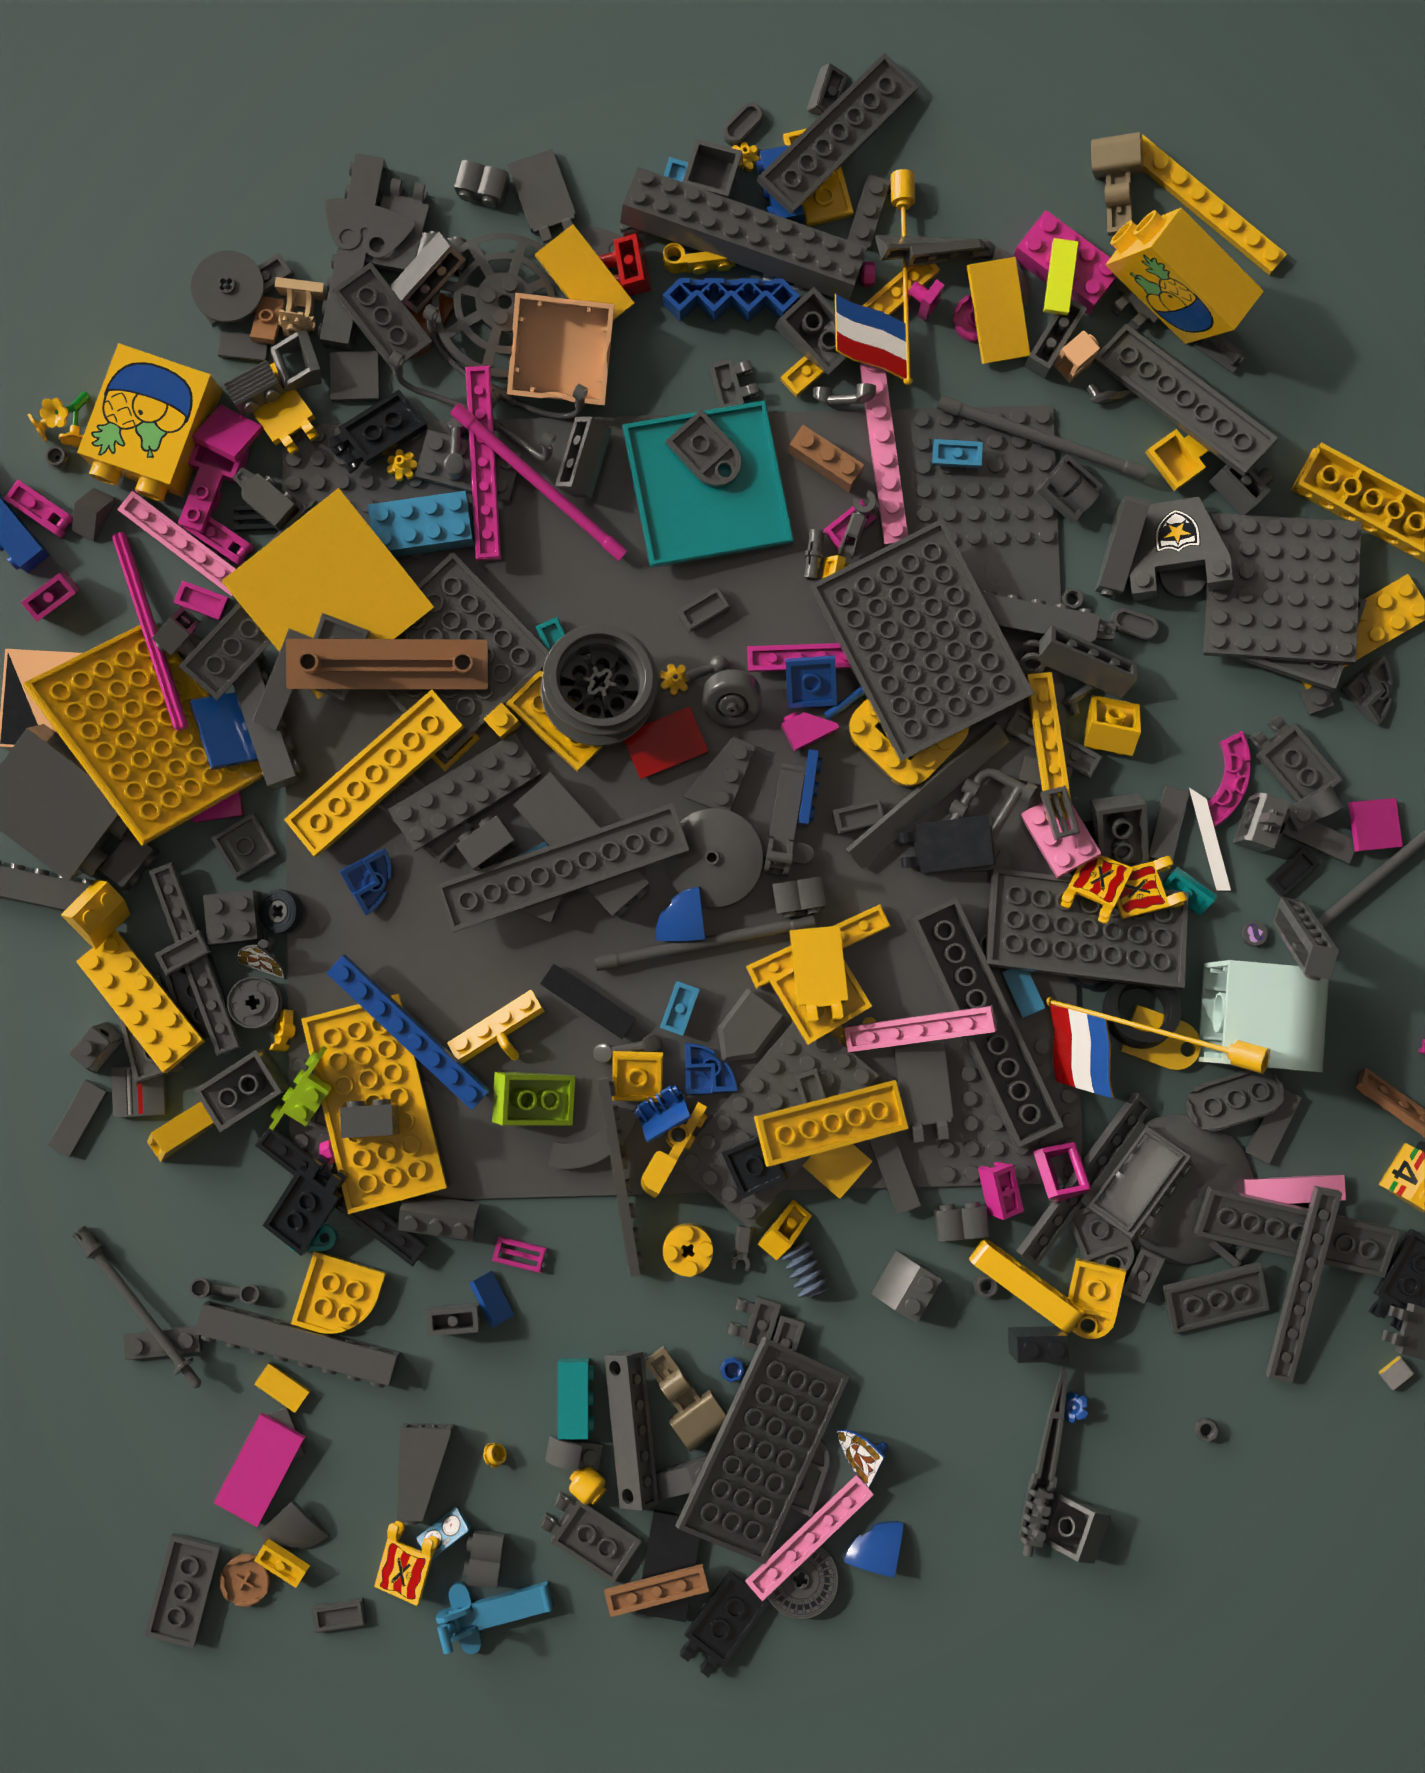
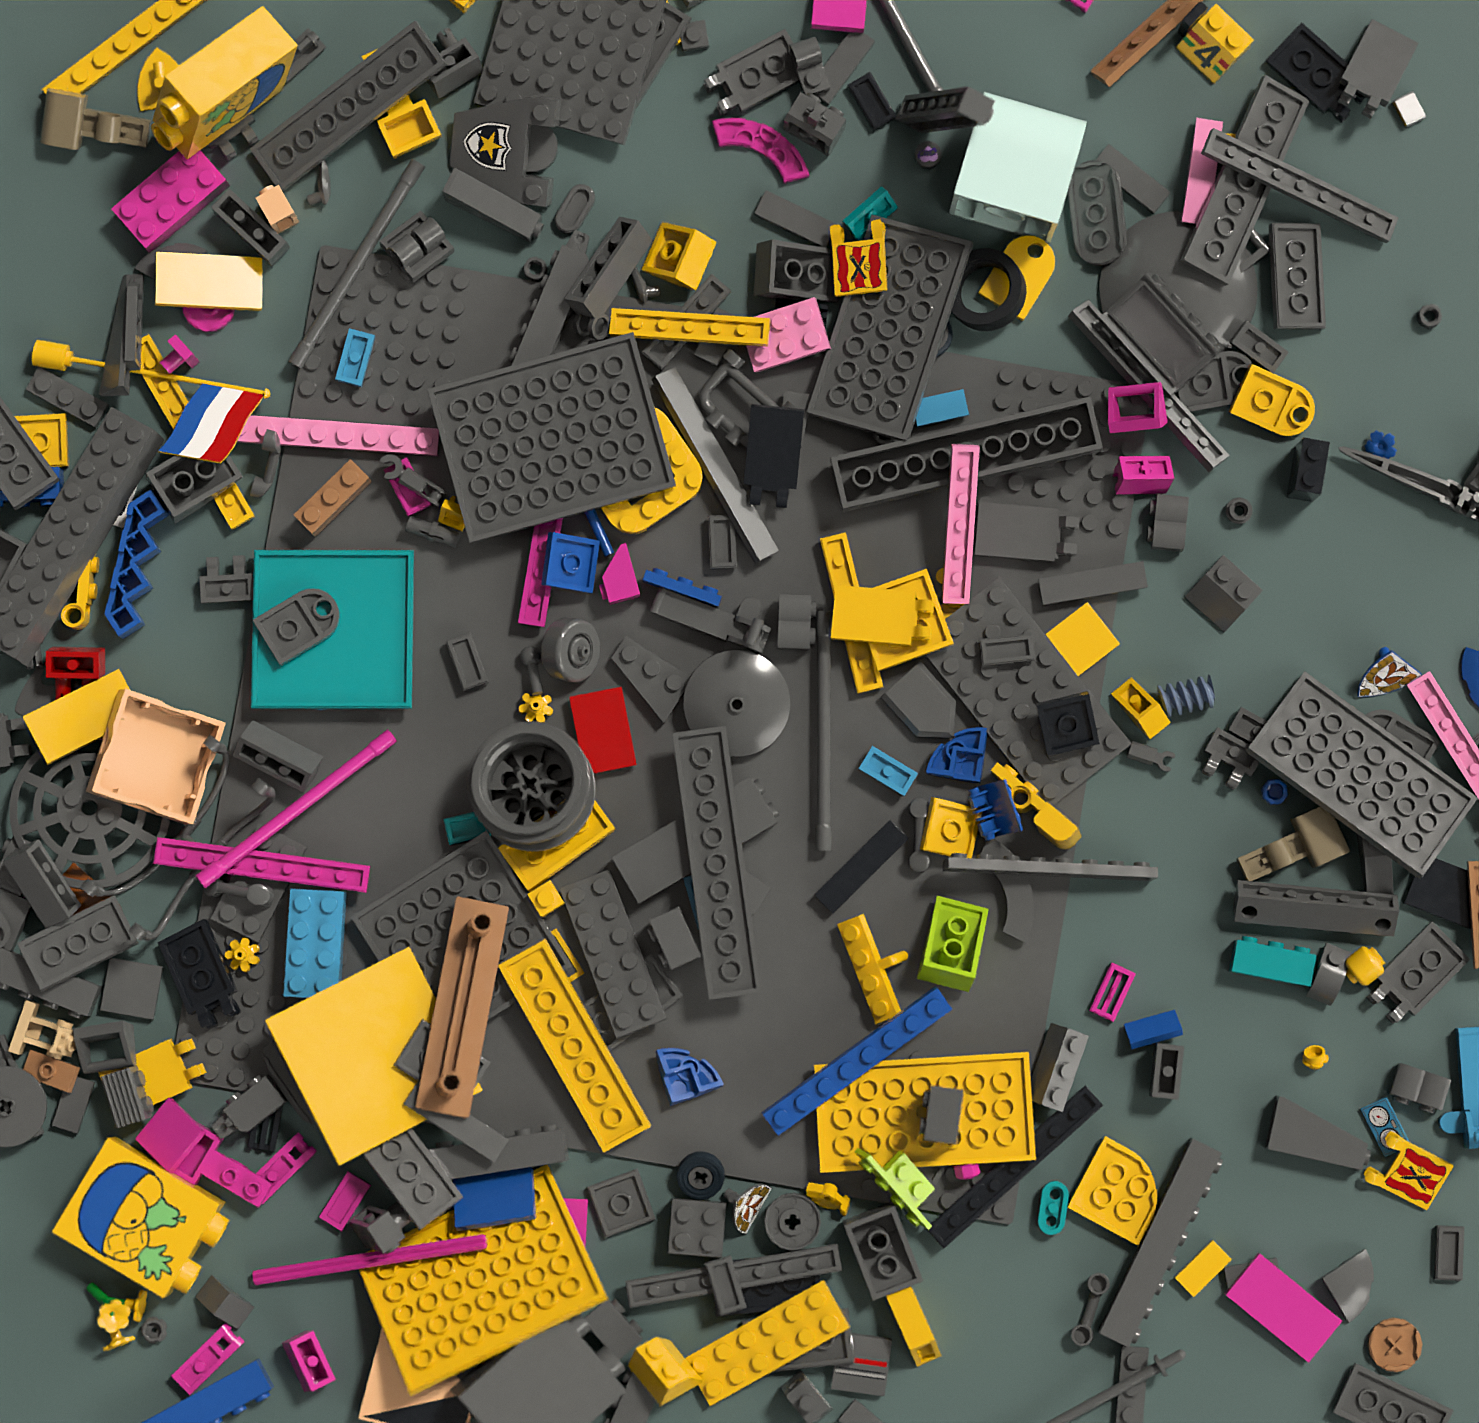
camera: 80 degrees left, 0 degrees up
(176, 539) = (277, 1210): bright pink plate -> none
(282, 1563) = (1384, 1301): yellow plate -> none
(305, 1205) = (1018, 1204): black tile -> none
(682, 918) = (794, 748): blue brick -> none
(688, 1264) = (1156, 814): yellow brick -> none
(830, 1123) = (1039, 635): yellow plate -> none
(867, 274) = (137, 411): dark pink tile -> none
(1026, 1285) = (1246, 469): yellow beam -> none
(1050, 813) = (763, 332): dark grey tile -> none
(1060, 276) = (190, 209): neon yellow tile -> none
(1084, 1048) = (1013, 357): flag -> none
(1099, 881) = (843, 305): flag -> none
(1210, 841) = (822, 179): white sticker -> none

